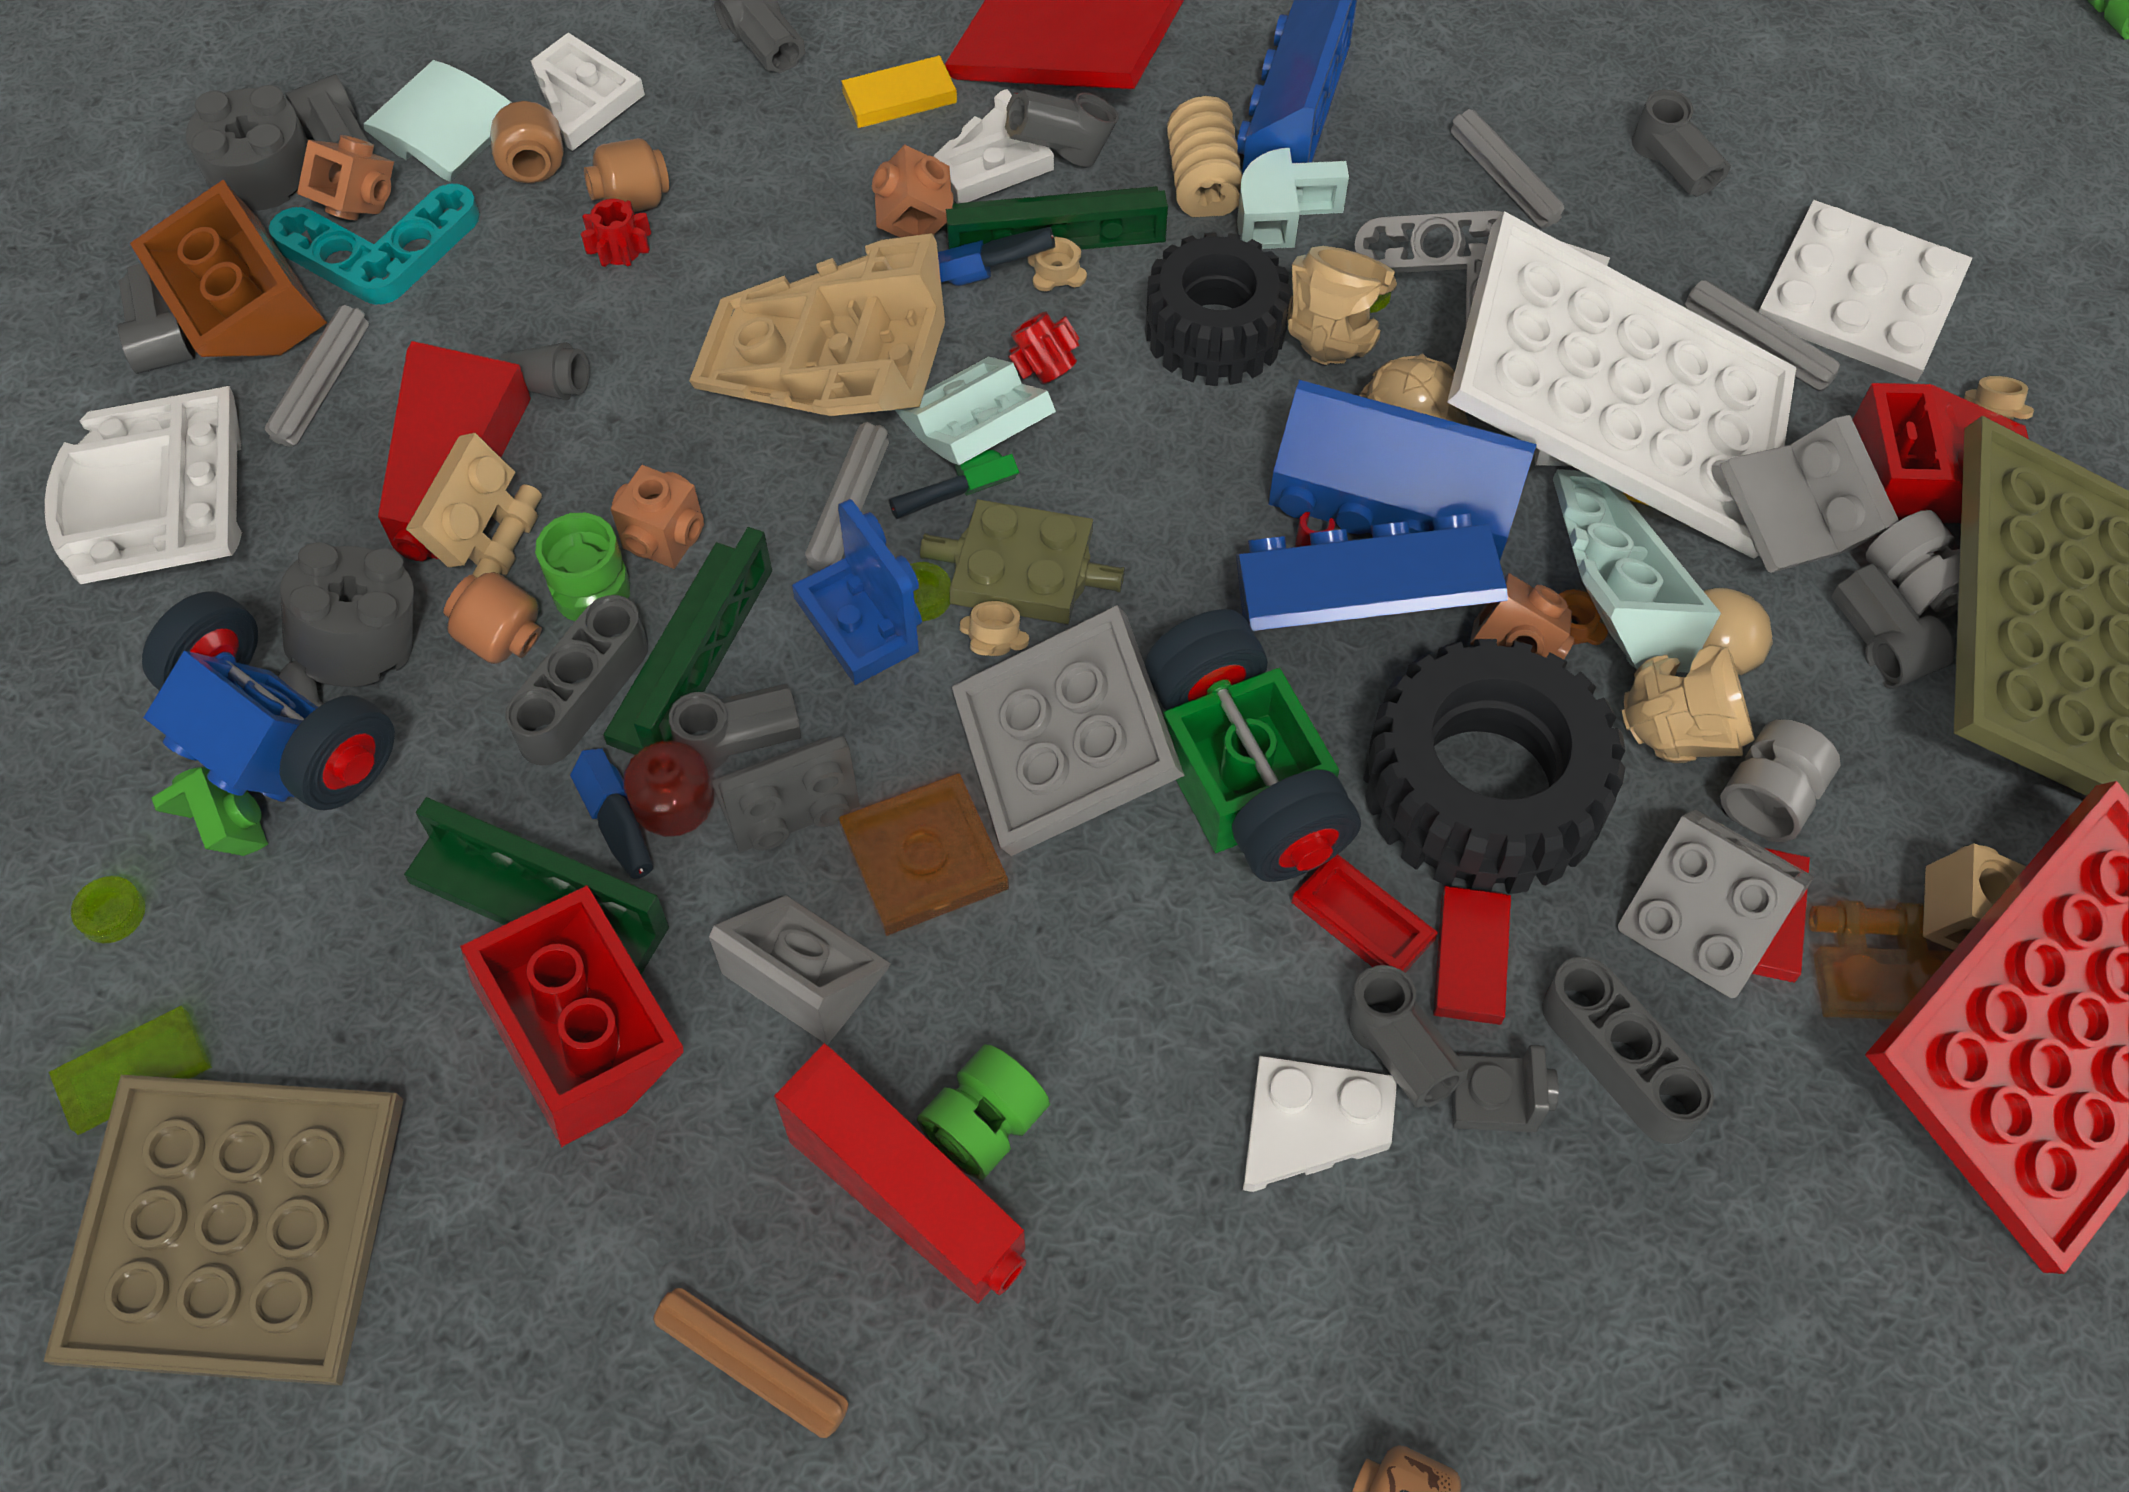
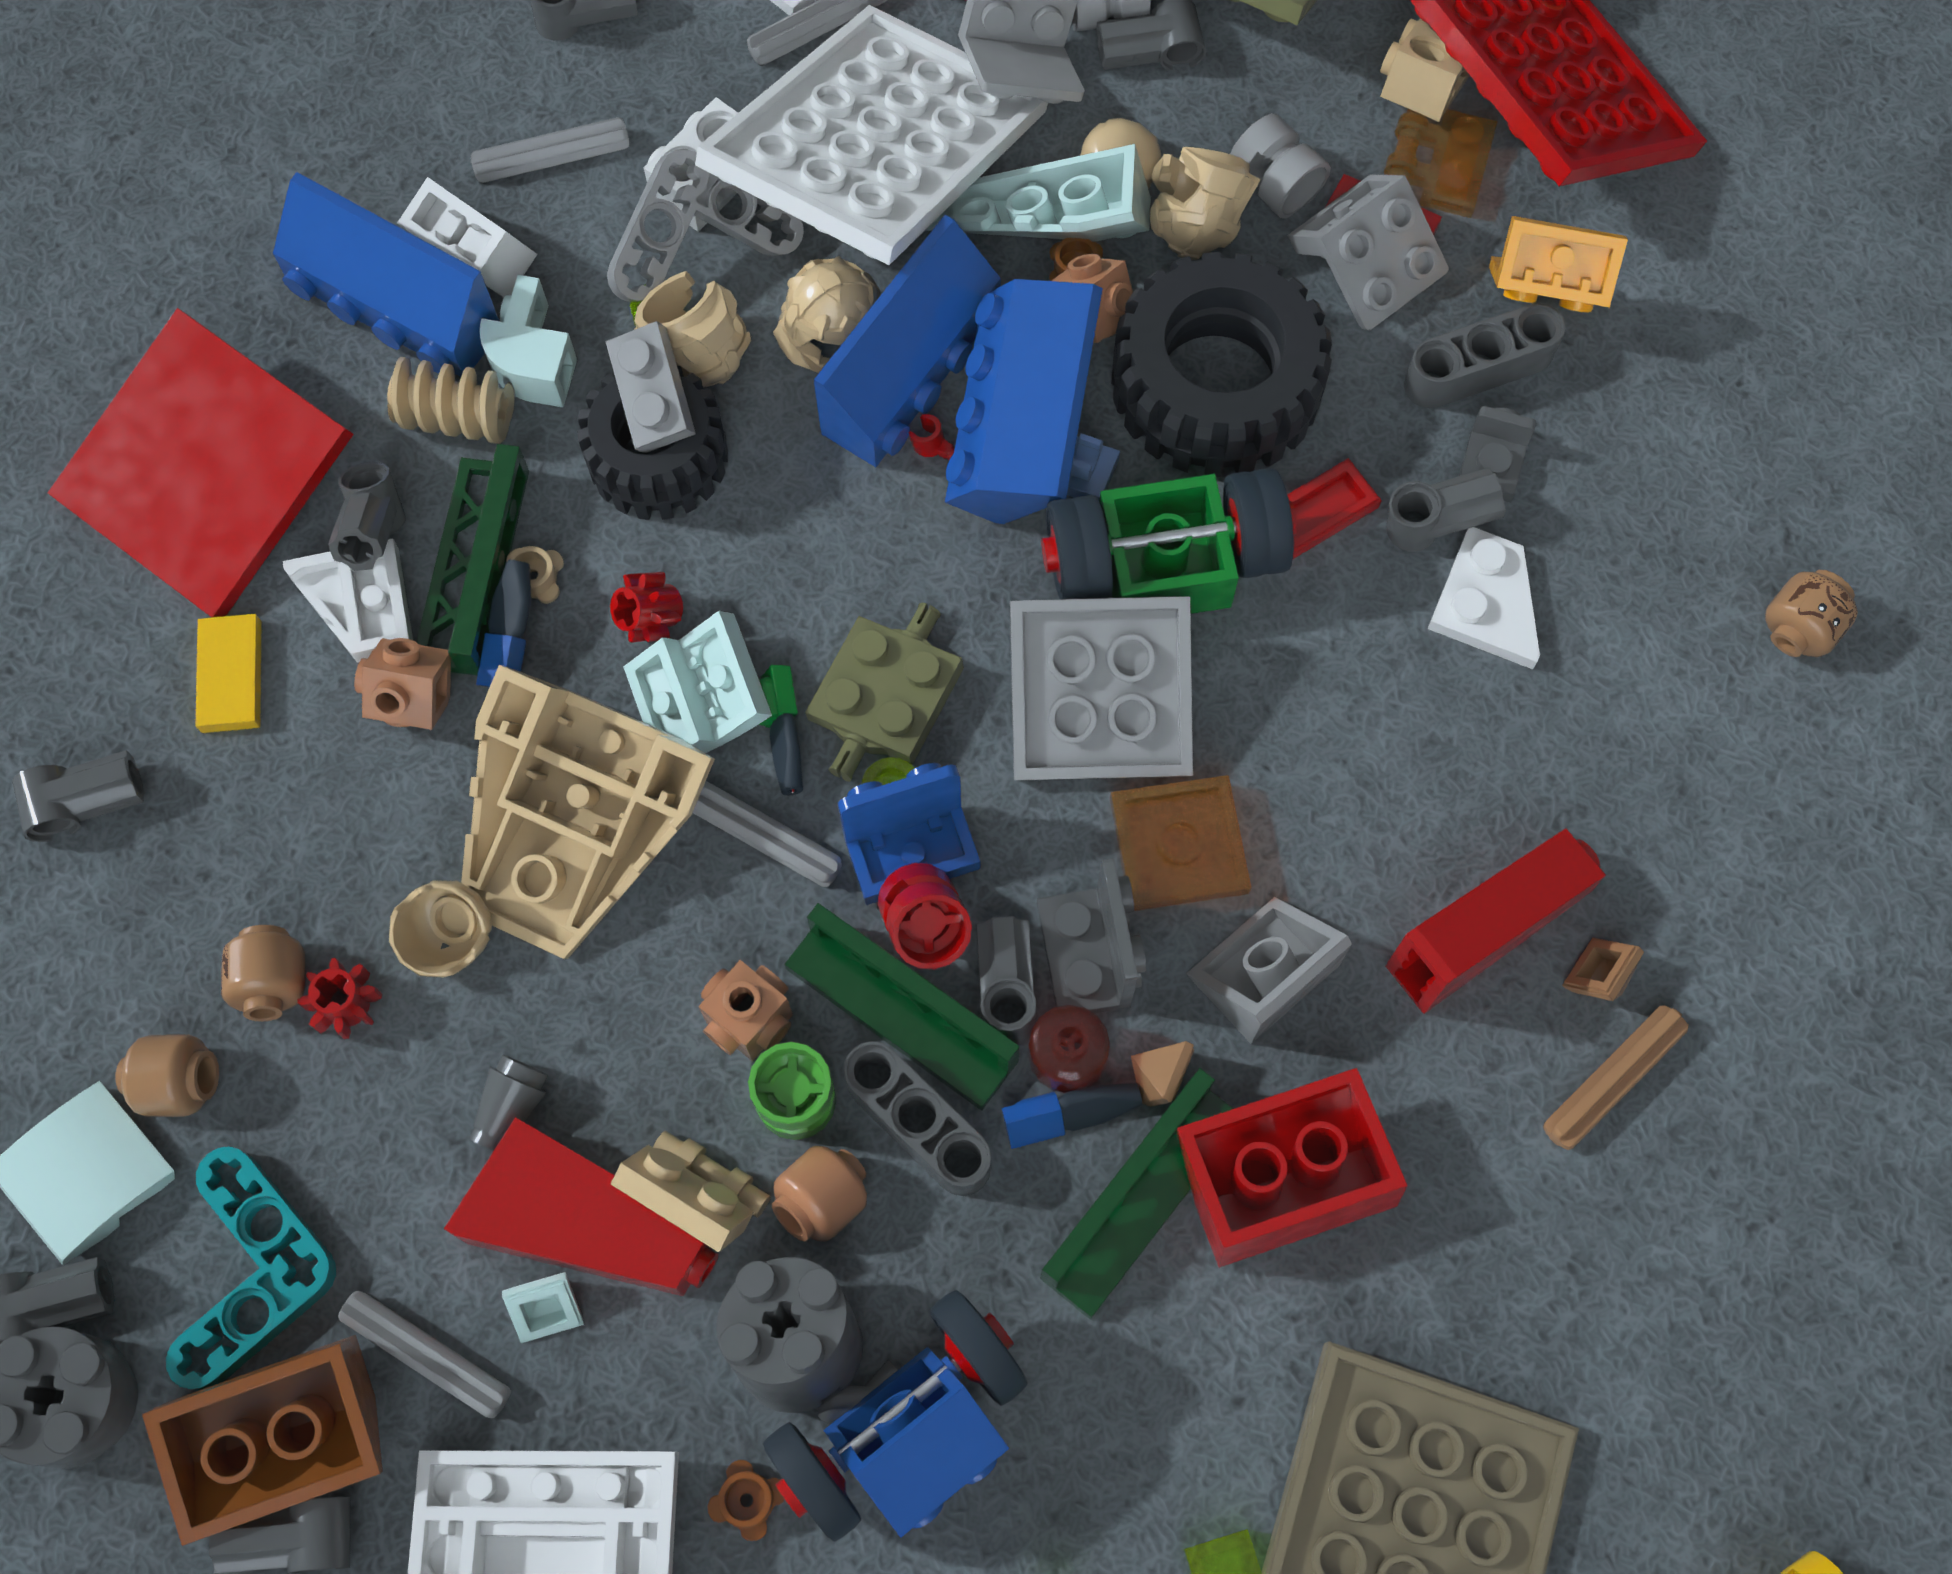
camera: 75 degrees left, 10 degrees up
(223, 819) = (1004, 1487): bright green bracket -> none
(345, 177) = (153, 1284): nougat brick -> none
(365, 441) = (542, 1307): none -> light aqua slope
(583, 88) = (93, 1005): white wing -> none
(665, 877) = (1161, 1072): none -> medium nougat slope
(689, 270) = (439, 915): none -> tan hair
(775, 627) = (924, 916): none -> red wheel
(872, 1325) = (1604, 969): none -> medium nougat slope
(994, 629) = (953, 718): tan plate -> none
(996, 1090) = (1445, 841): bright green wheel -> none
(1248, 265) = (650, 387): none -> light grey plate
(1330, 680) = (1091, 467): none -> medium blue tile
(1373, 120) = (467, 235): none -> white brick
(1472, 955) = (1370, 439): red tile -> none
(1761, 1085) = (1559, 263): none -> light orange bracket

